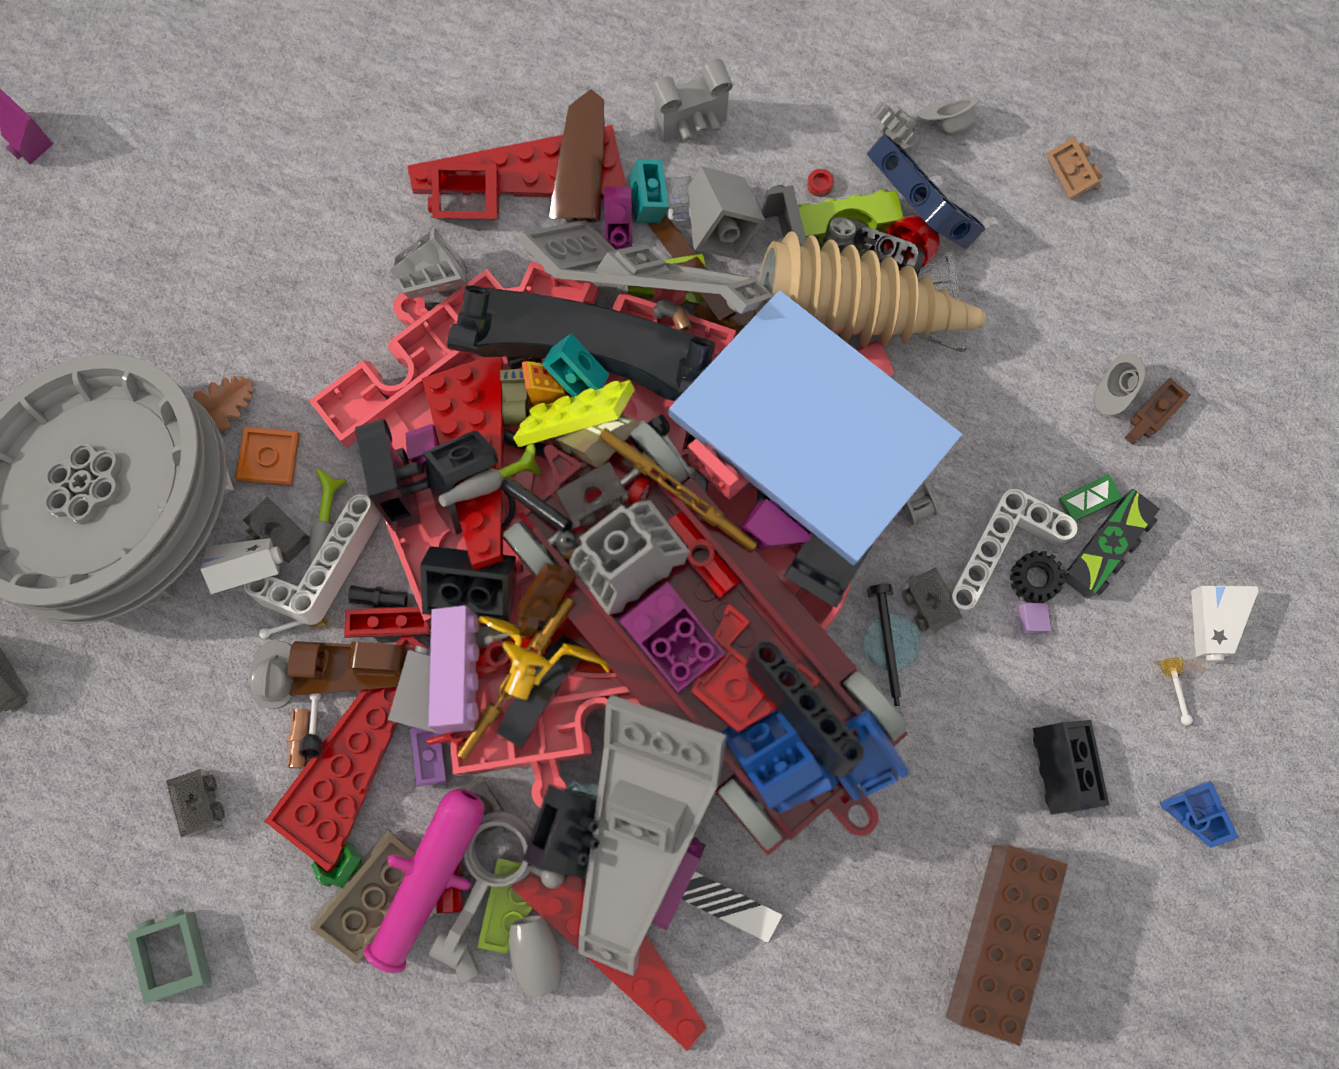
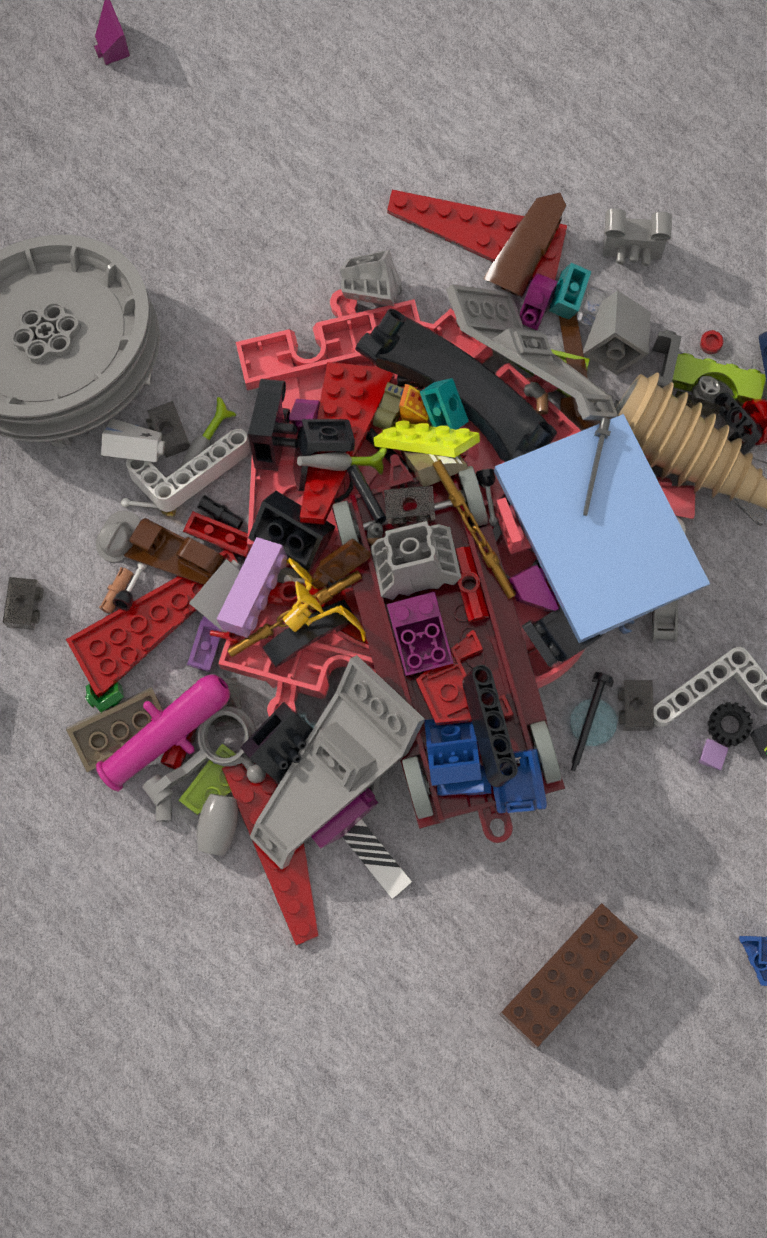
camera: 30 degrees right, 0 degrees up
(224, 401) = (171, 313): nougat plant -> none
(267, 456) = (186, 370): orange tile -> none
(492, 191) = (448, 236): red window -> none
(639, 490) = (446, 517): red tile -> none
(769, 319) = (602, 432): none -> dark grey sword
(1070, 766) = (684, 876): black slope -> none

